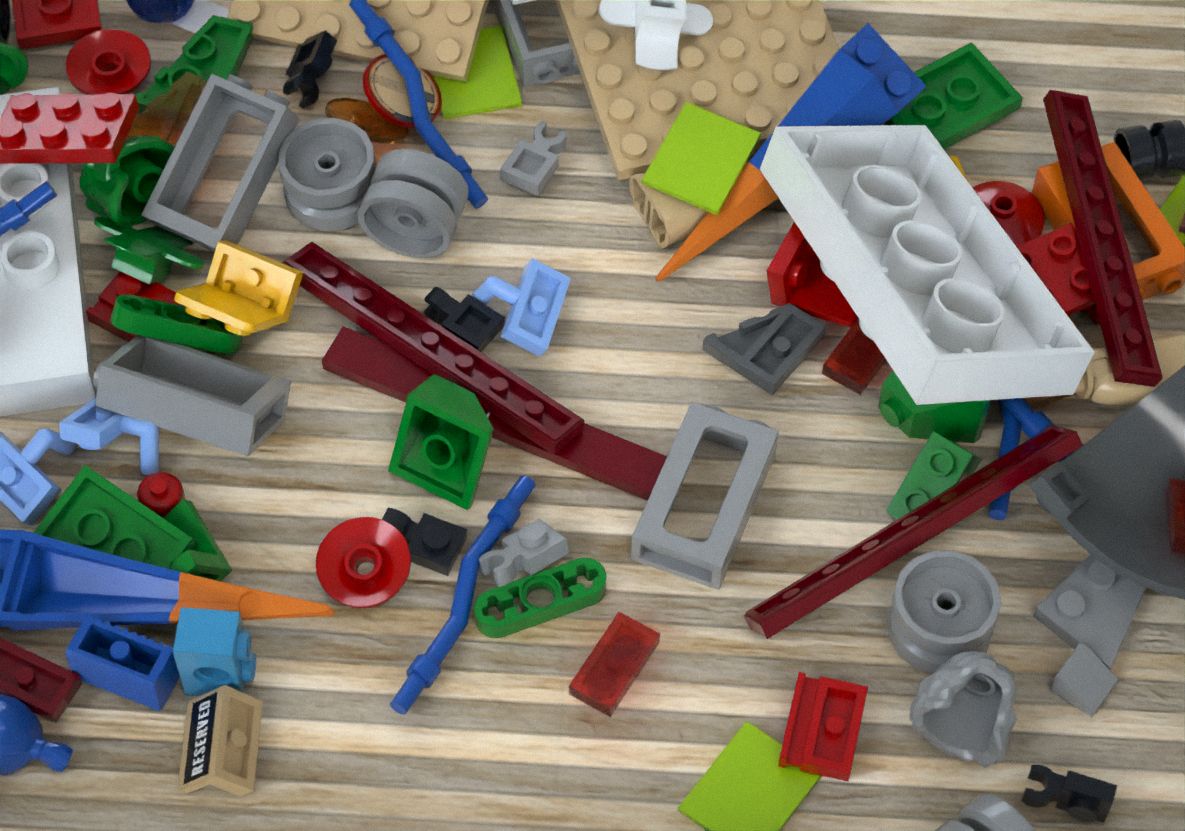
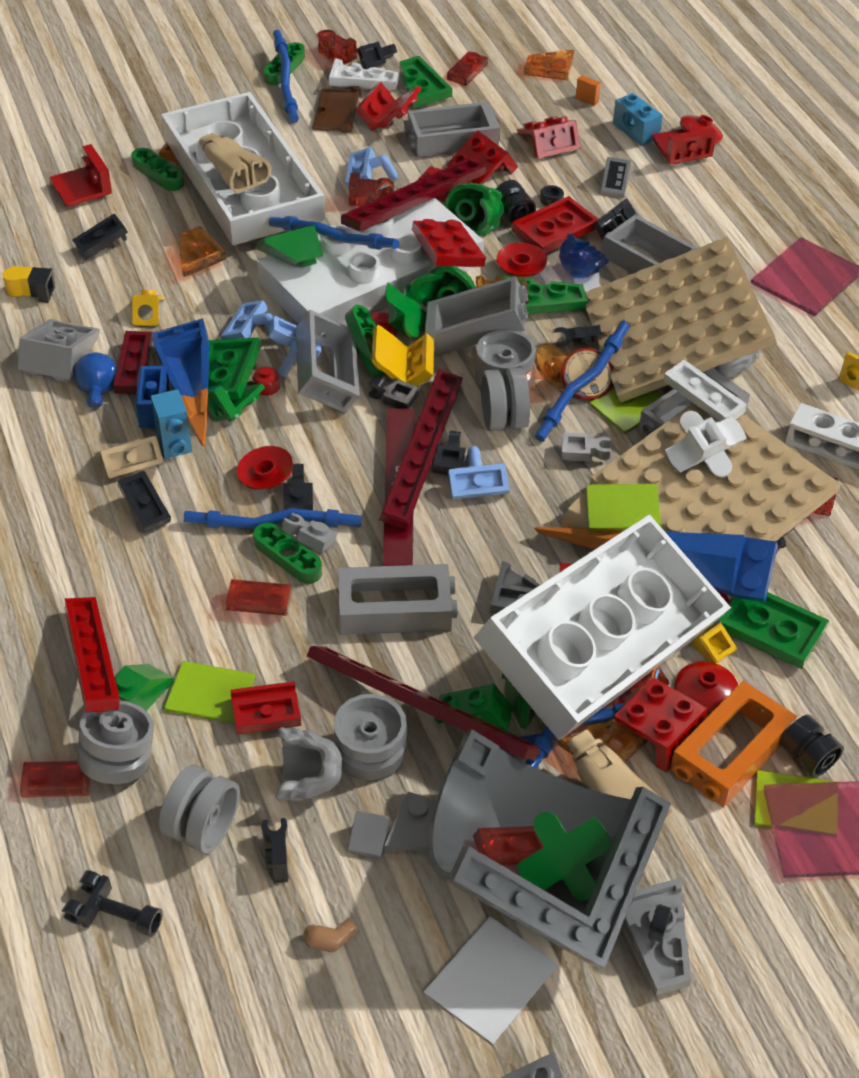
camera: 65 degrees right, 10 degrees down
(295, 334) = (395, 394): none -> black plate
(347, 752) = (144, 501): none -> black plate
(442, 441) = (361, 467): green slope -> none
(1102, 240) = (701, 724): dark red tile -> none

